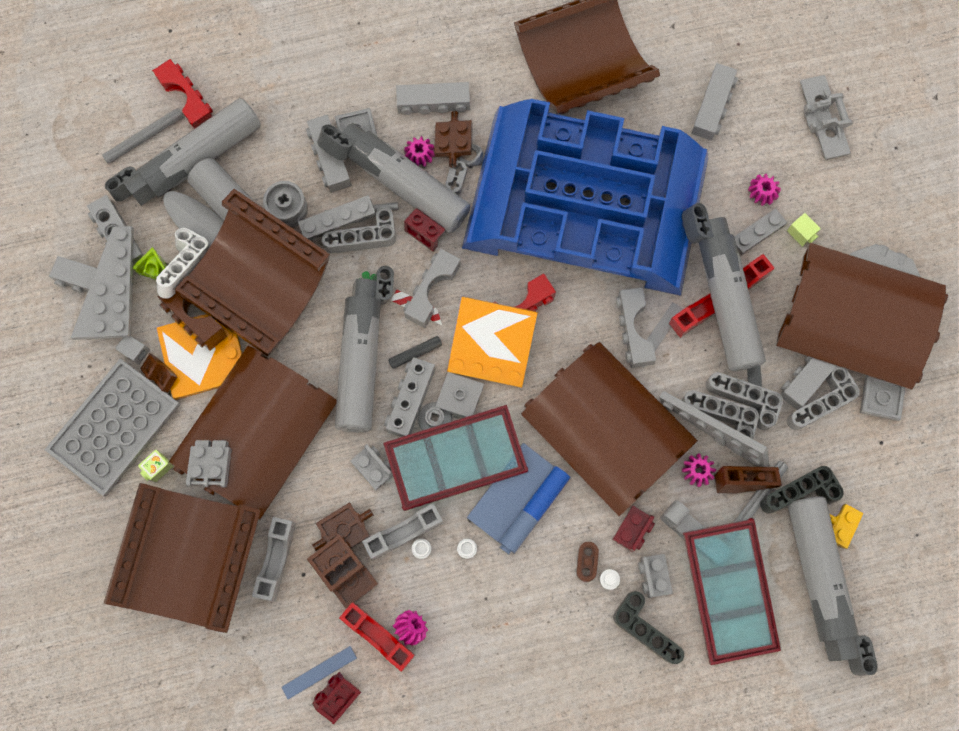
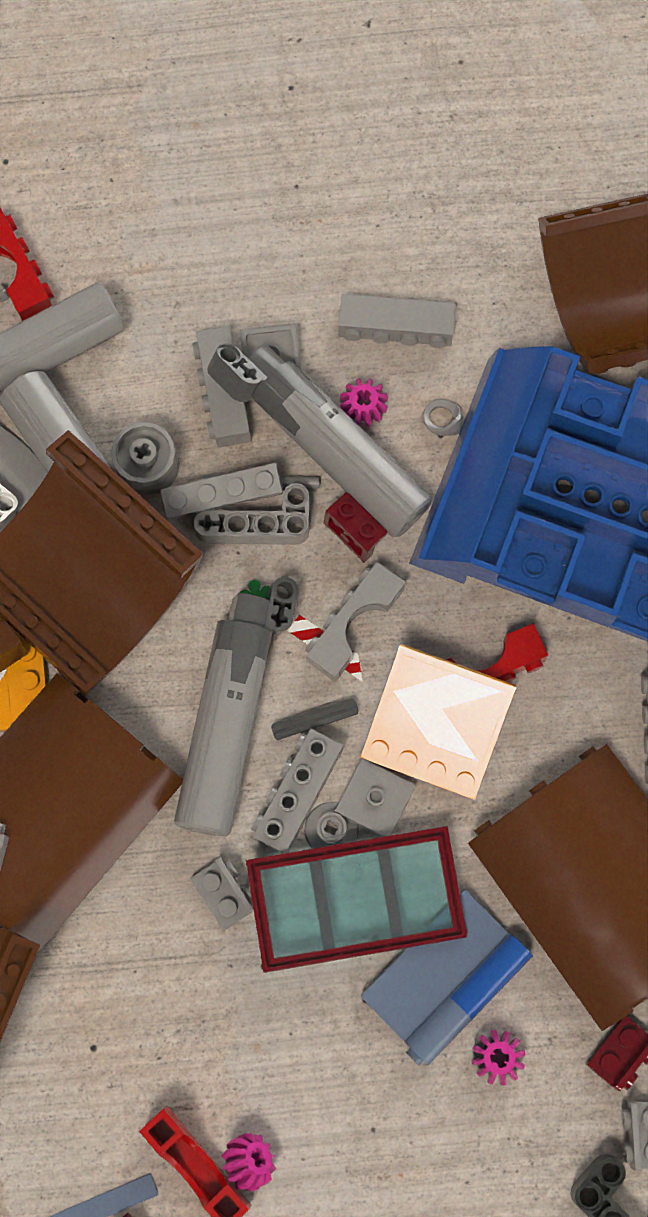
camera: 10 degrees right, 0 degrees up
(271, 574) = (49, 1029): light grey arch -> none
(342, 571) = (154, 1055): reddish brown bracket -> none
(346, 523) = (164, 987): reddish brown plate -> none
(398, 535) = (257, 1006): light grey arch -> none
(421, 548) = (282, 1035): white plate -> none
(453, 139) = (419, 389): reddish brown plate -> none
(459, 179) = (421, 453): light grey beam -> none
(467, 548) = (354, 1045): white plate -> none
(561, 536) = (492, 1066): none -> dark pink gear
(589, 562) = (545, 1096): reddish brown plate -> none
(609, 579) = (573, 1129): white plate -> none

